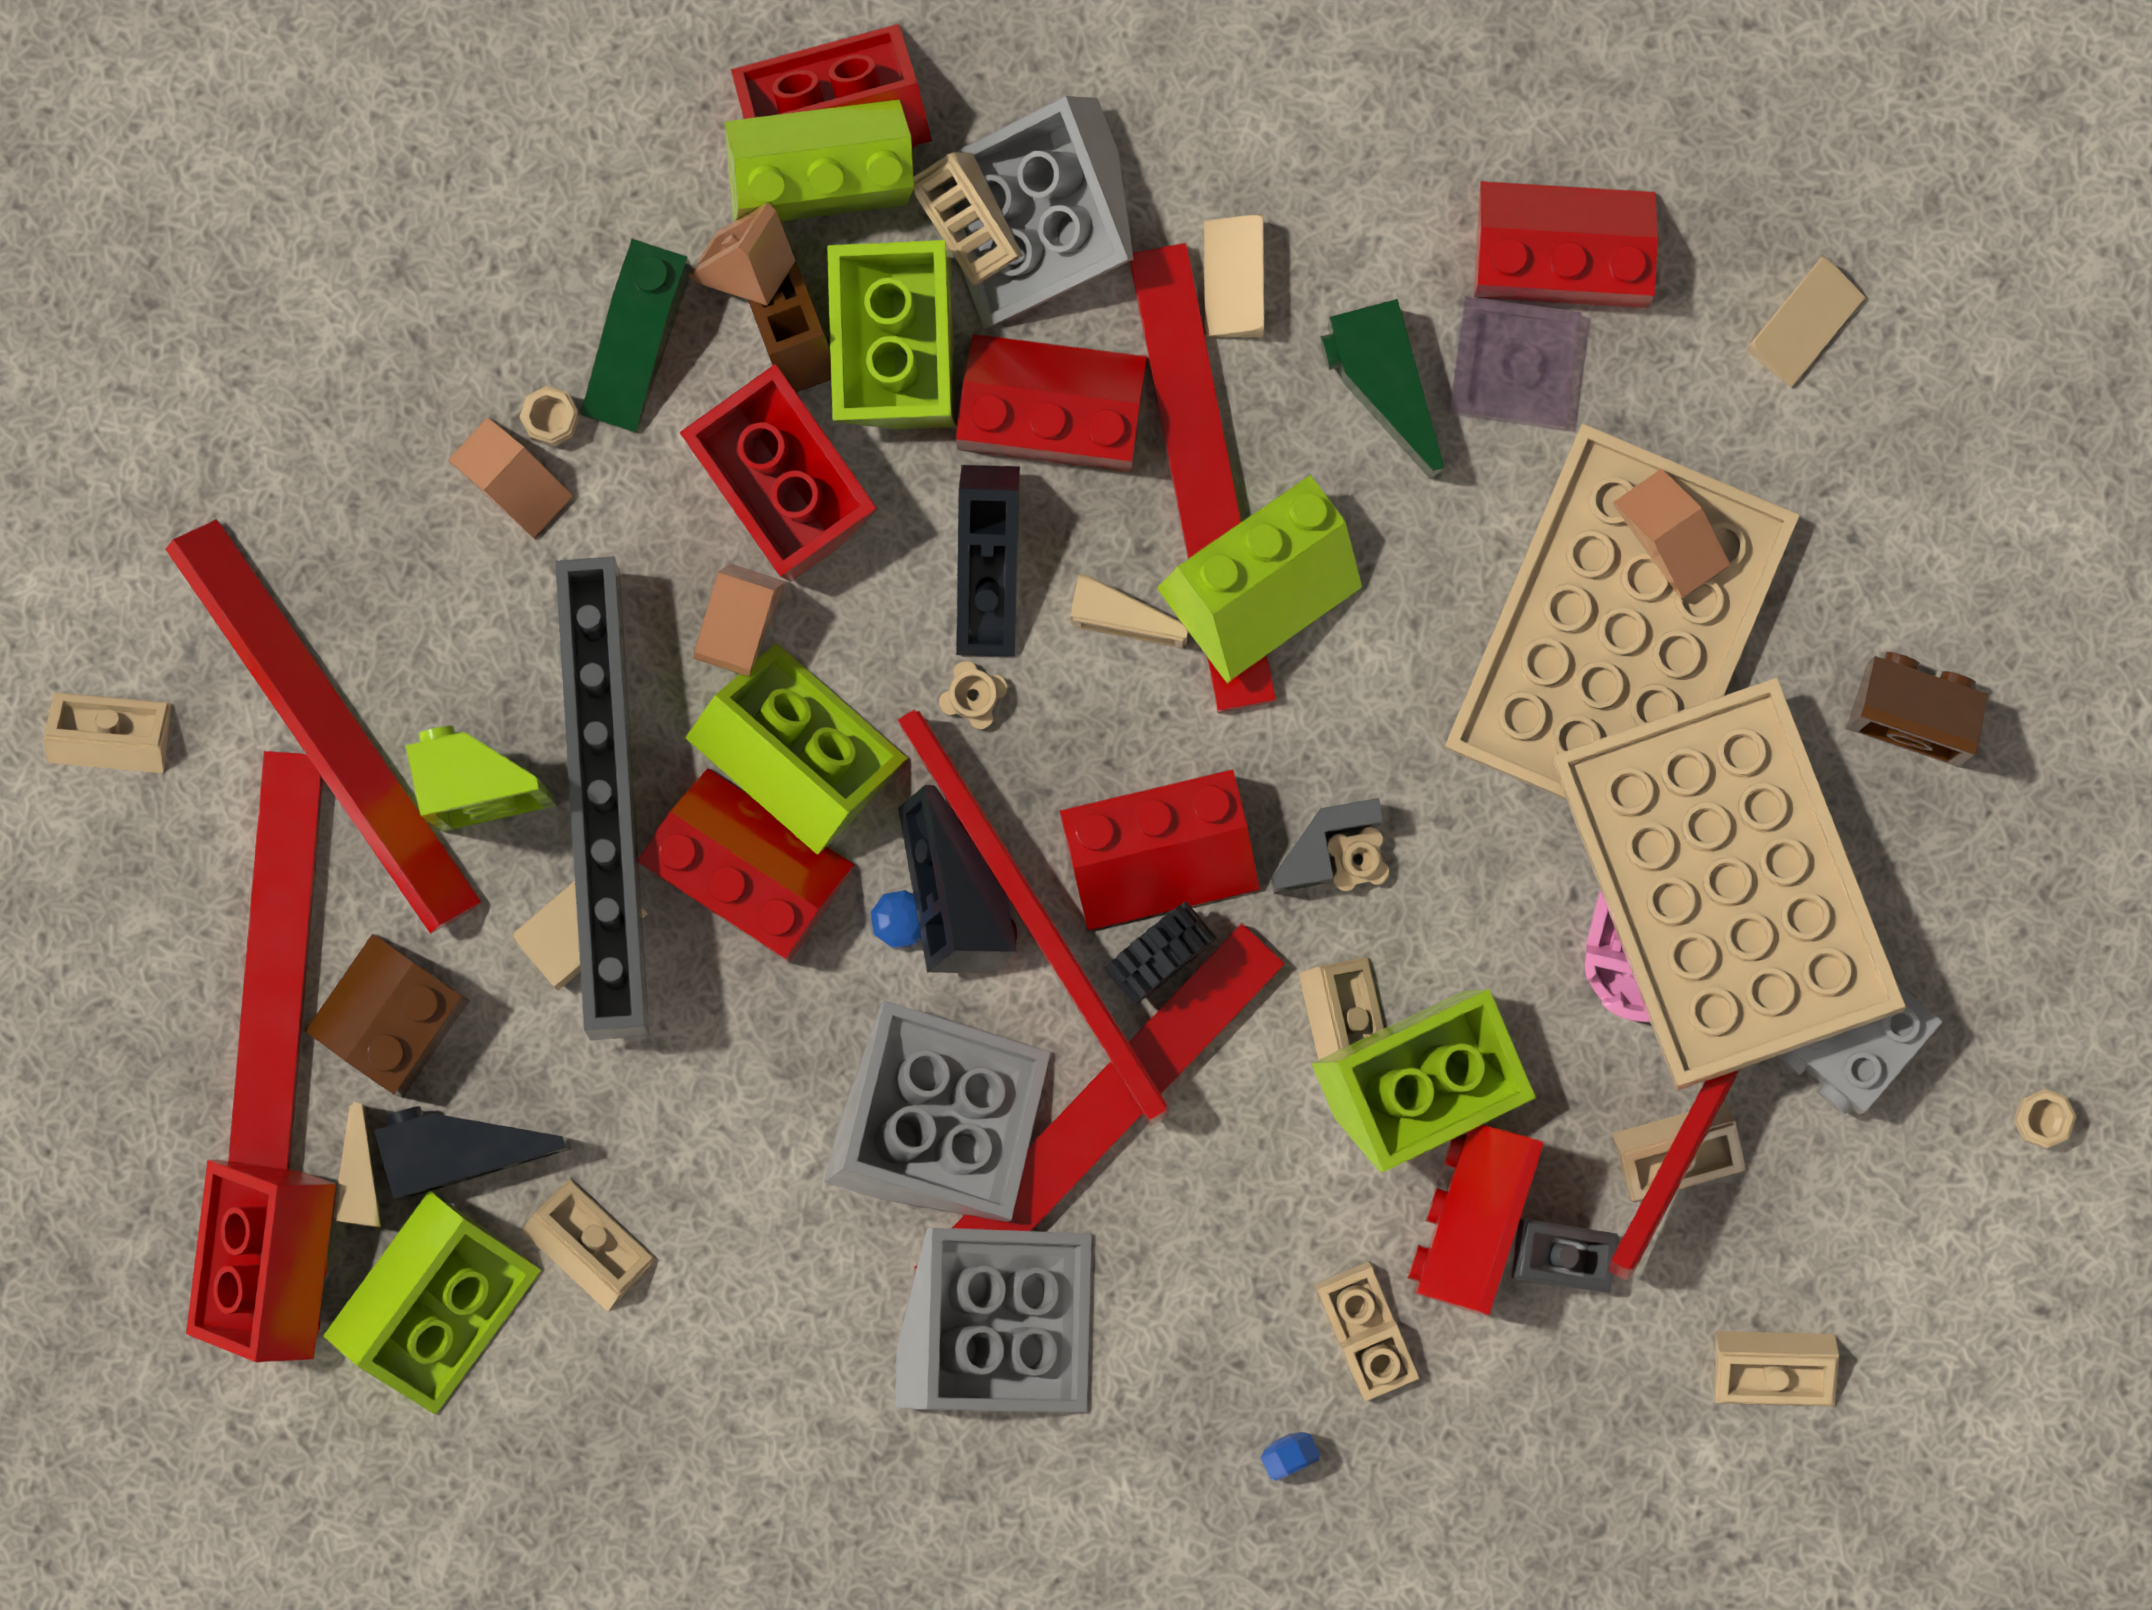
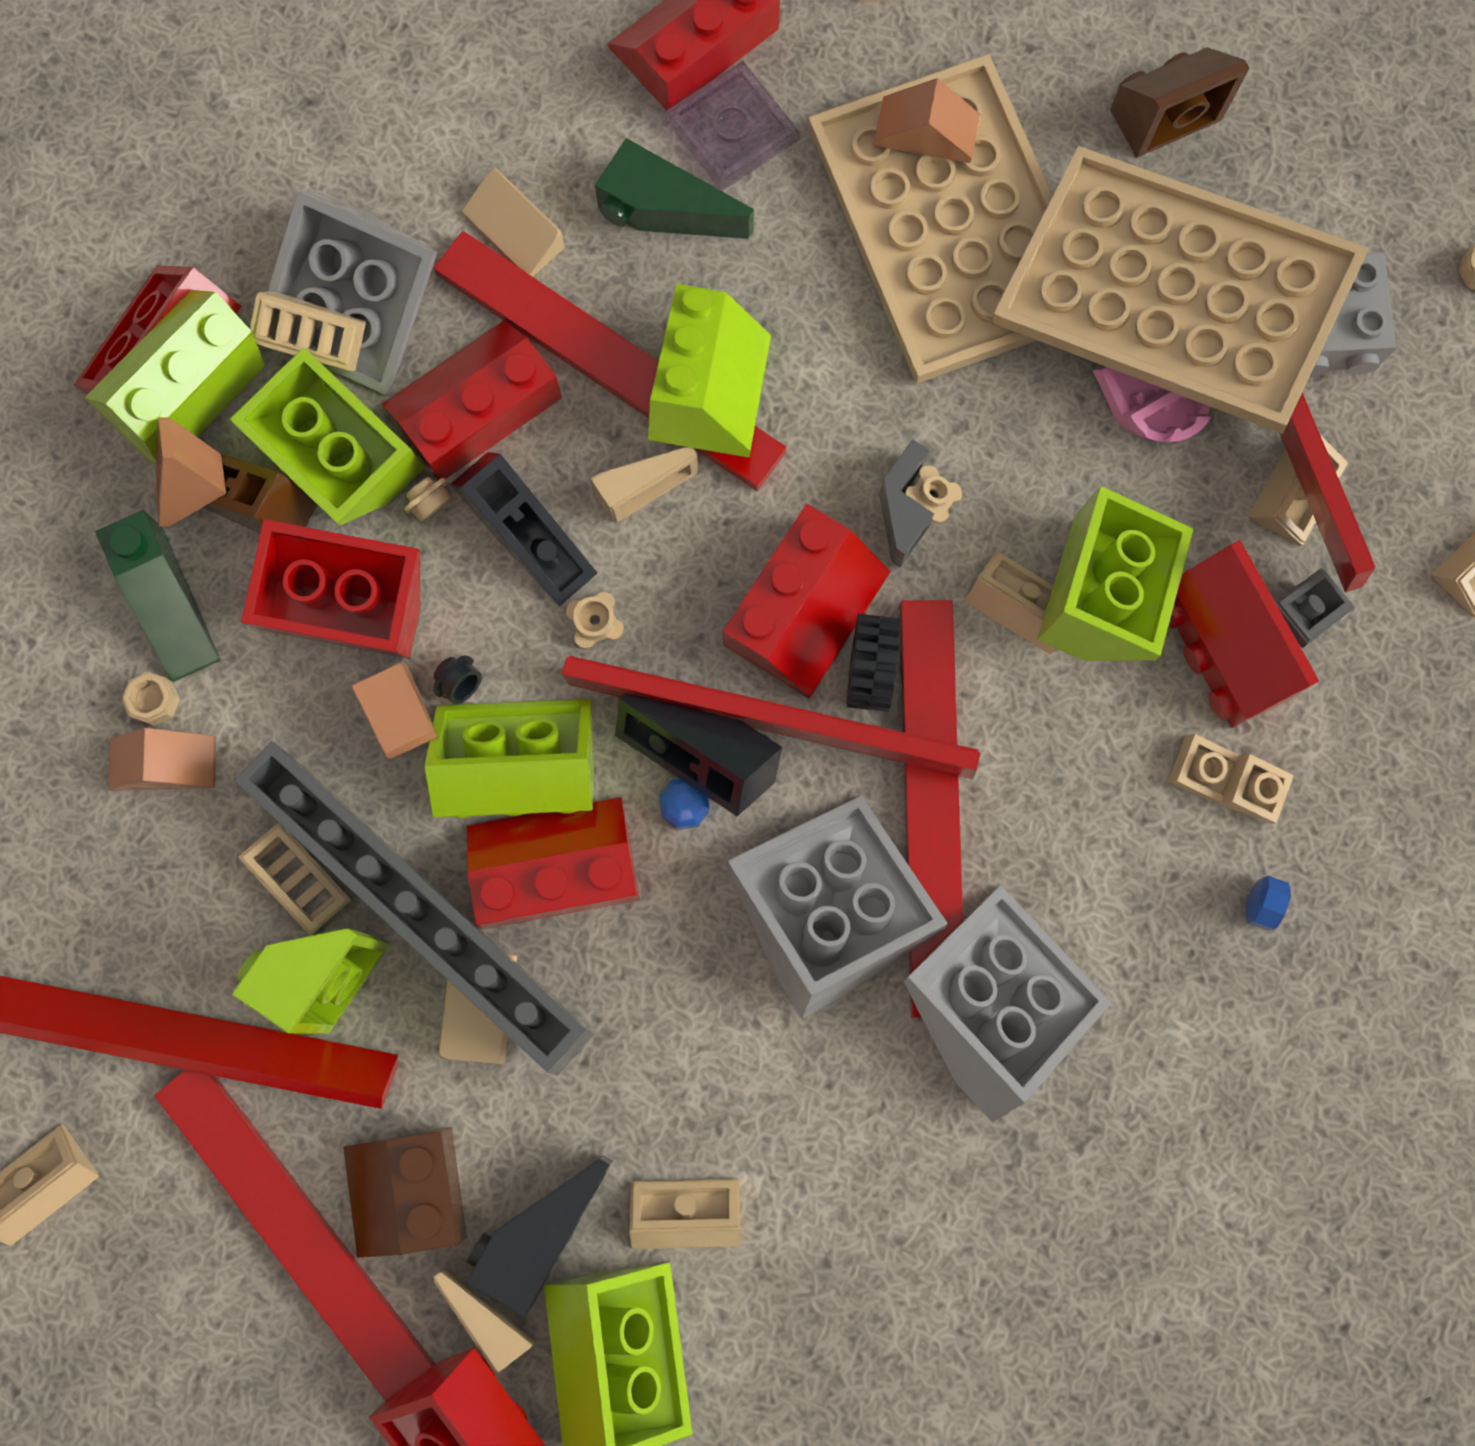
camera: 50 degrees left, 5 degrees down
(529, 729) = (263, 846): none -> tan slope
(812, 637) = (456, 679): none -> black plate
(931, 458) = (427, 498): none -> tan plate

